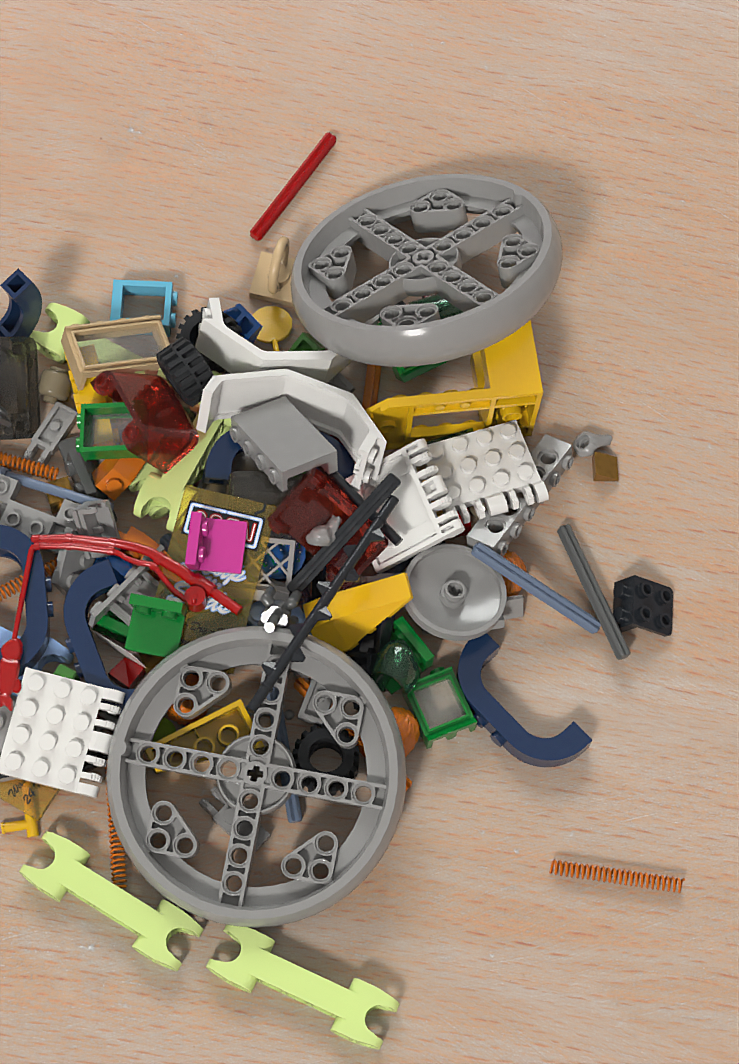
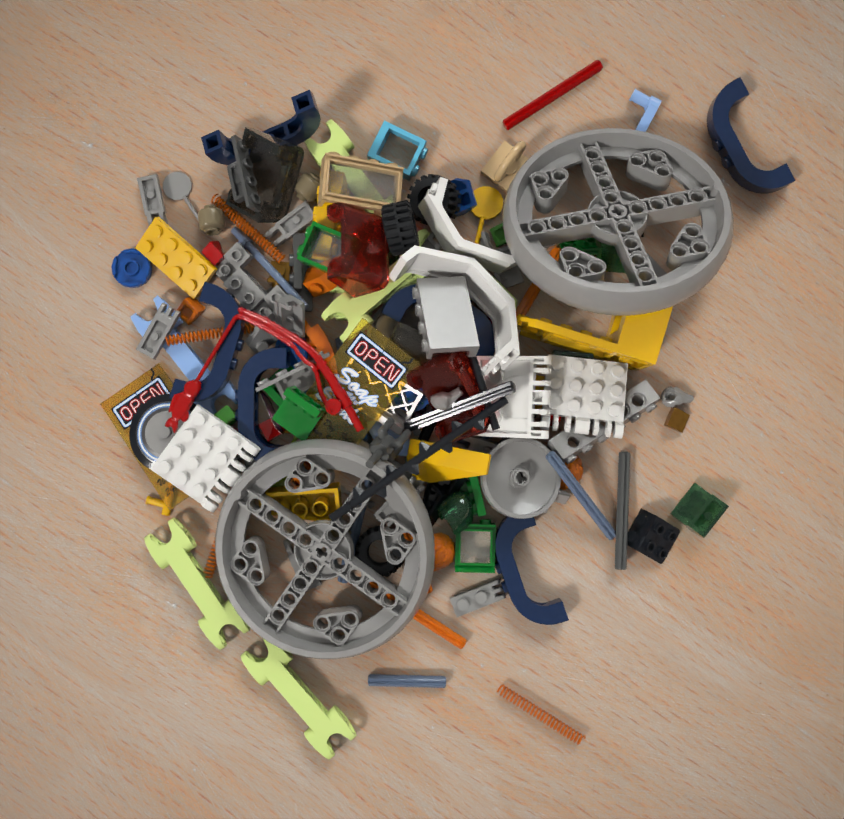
camera: 25 degrees right, 20 degrees up
(215, 544) = (363, 374): dark pink bracket -> none
(406, 154) = (650, 106): none -> light blue beam
(413, 821) = (433, 624): none -> orange axle
(431, 908) = (407, 681): none -> sand blue axle
(470, 770) = (476, 598): none -> light grey hinge
(521, 168) = (730, 149): none -> dark blue arch
(680, 553) = (699, 510): none -> clear green brick

